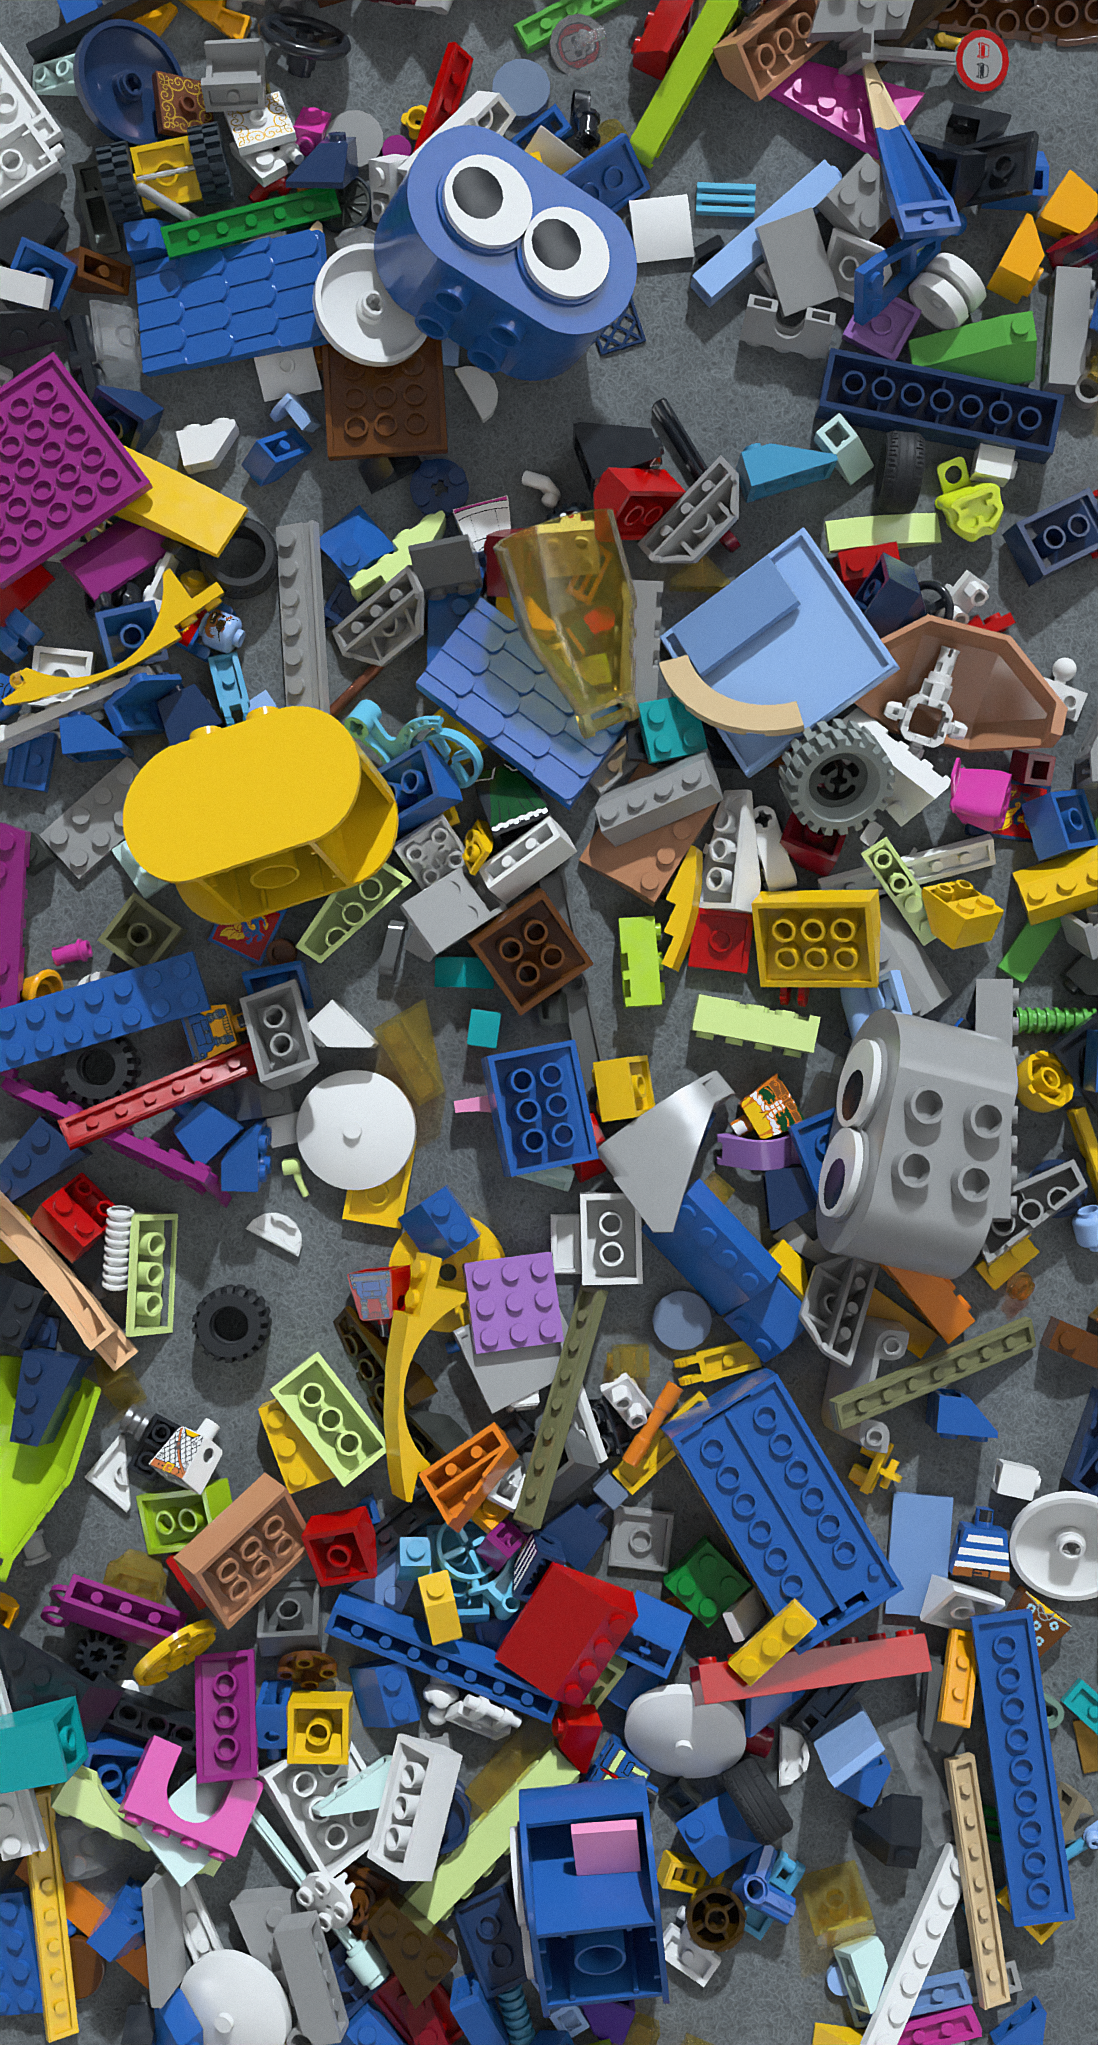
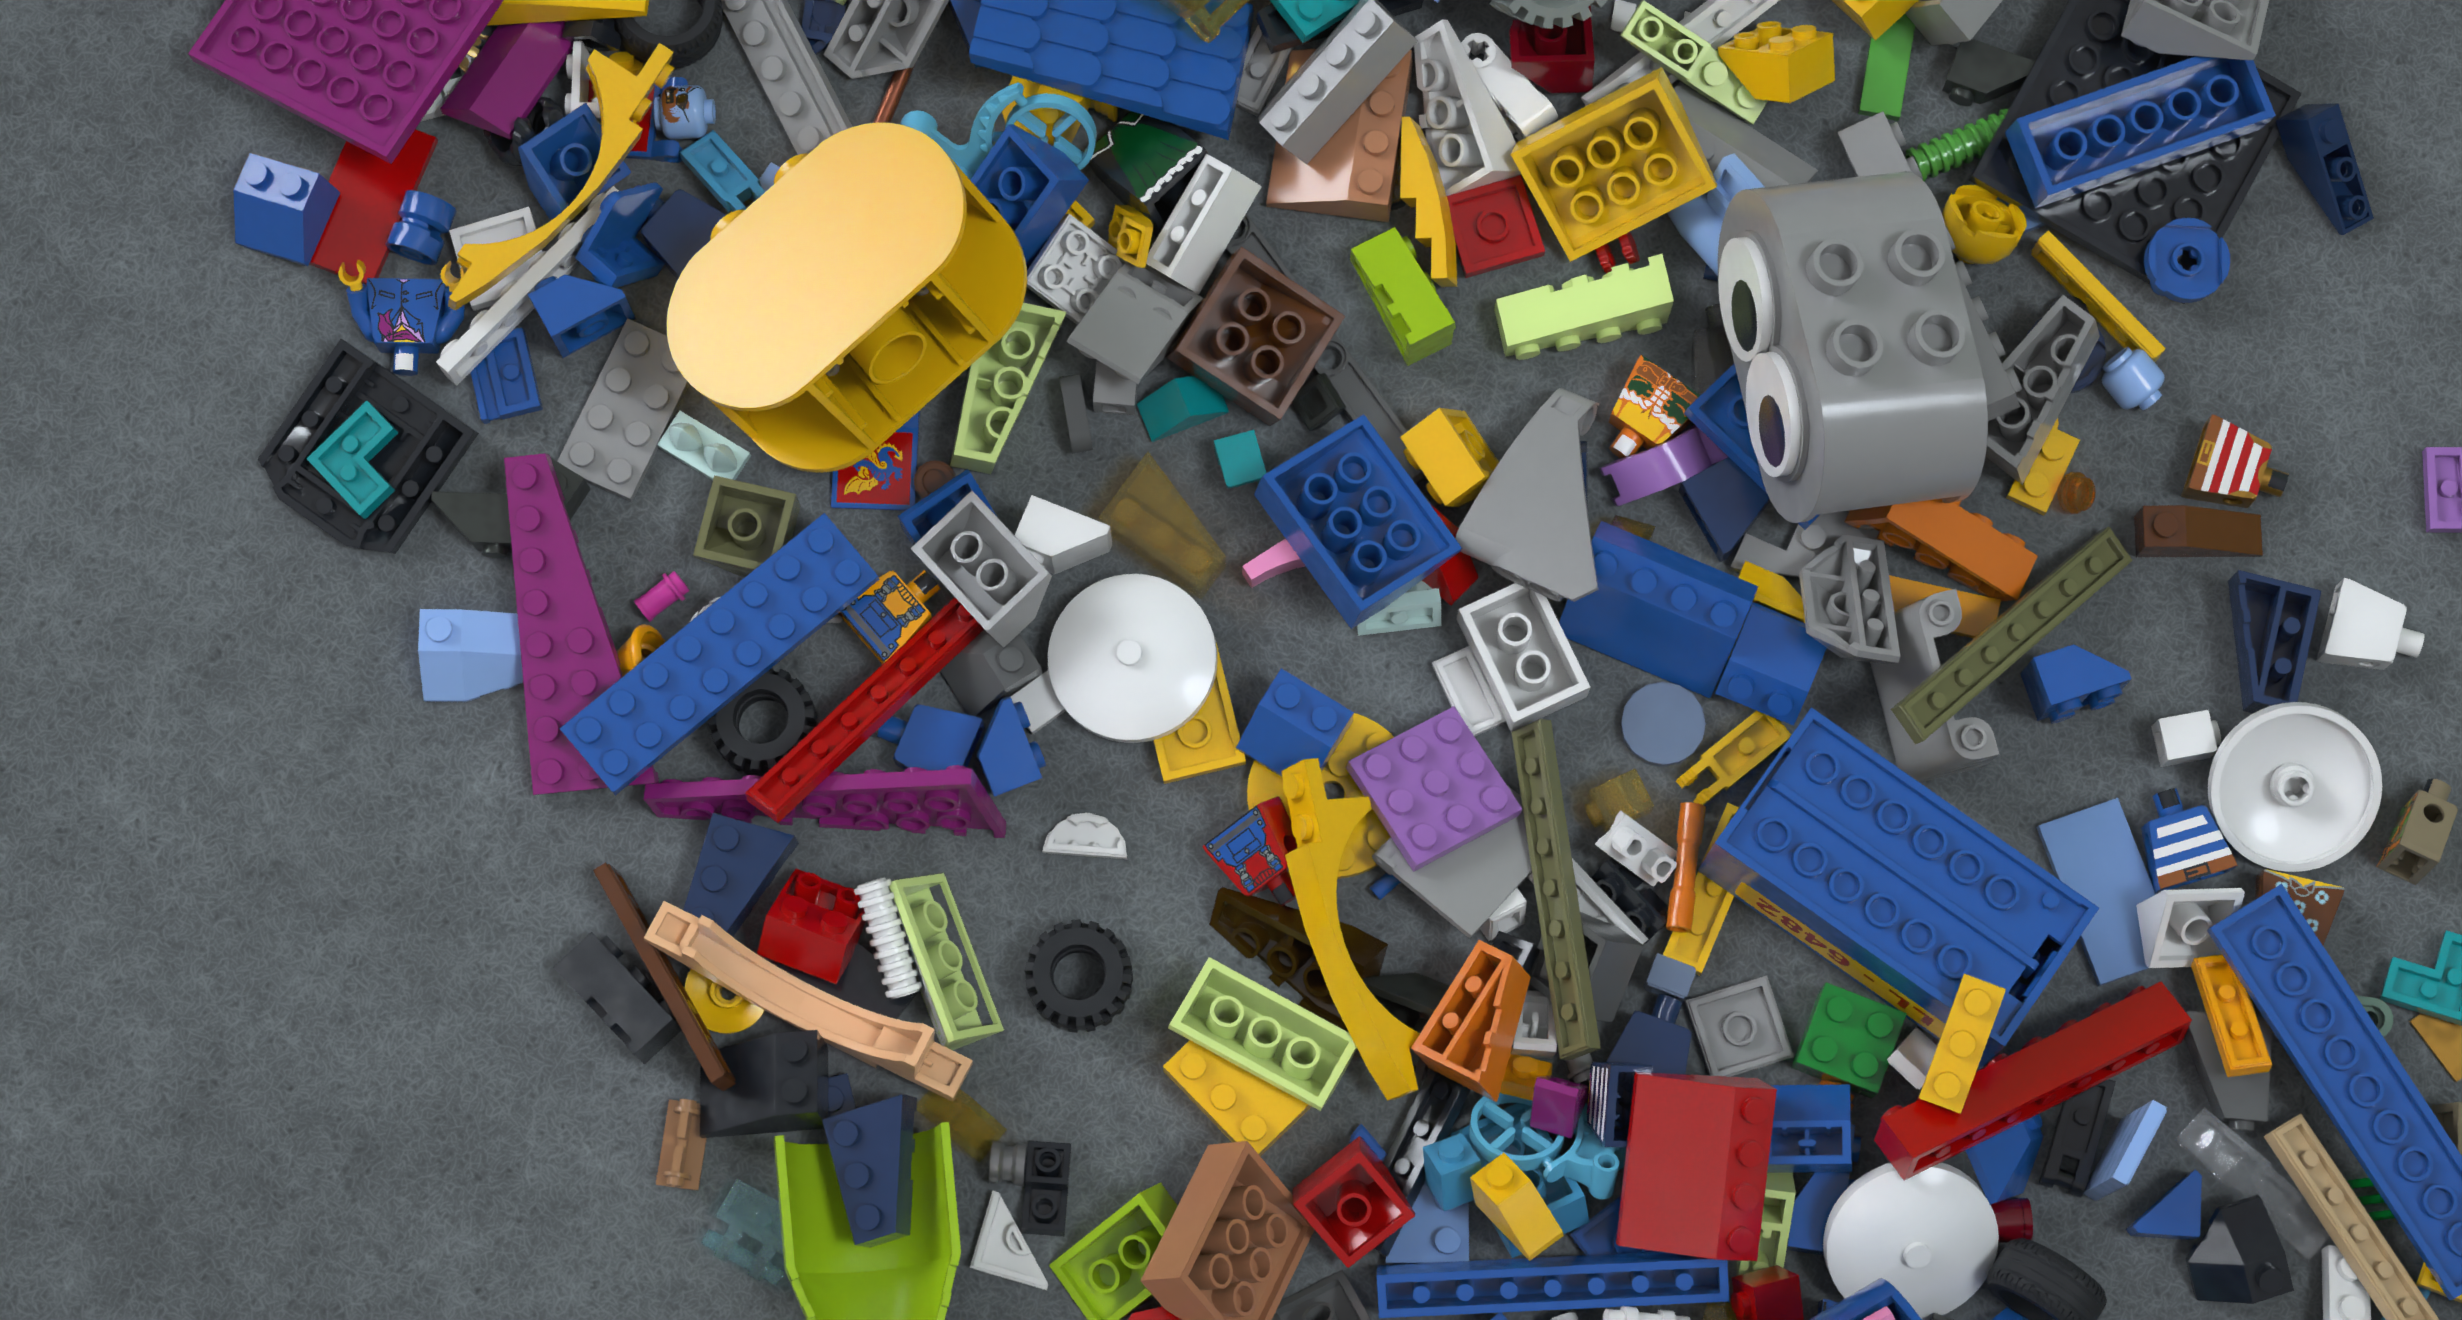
camera: 20 degrees left, 10 degrees down
(189, 1457) = (1099, 1171): white torso -> none
(292, 1166) = (1068, 746): yellowish green hand -> none
(792, 1755) = (2066, 1223): white tile -> none
(868, 1478) = (1998, 781): yellow hips -> none

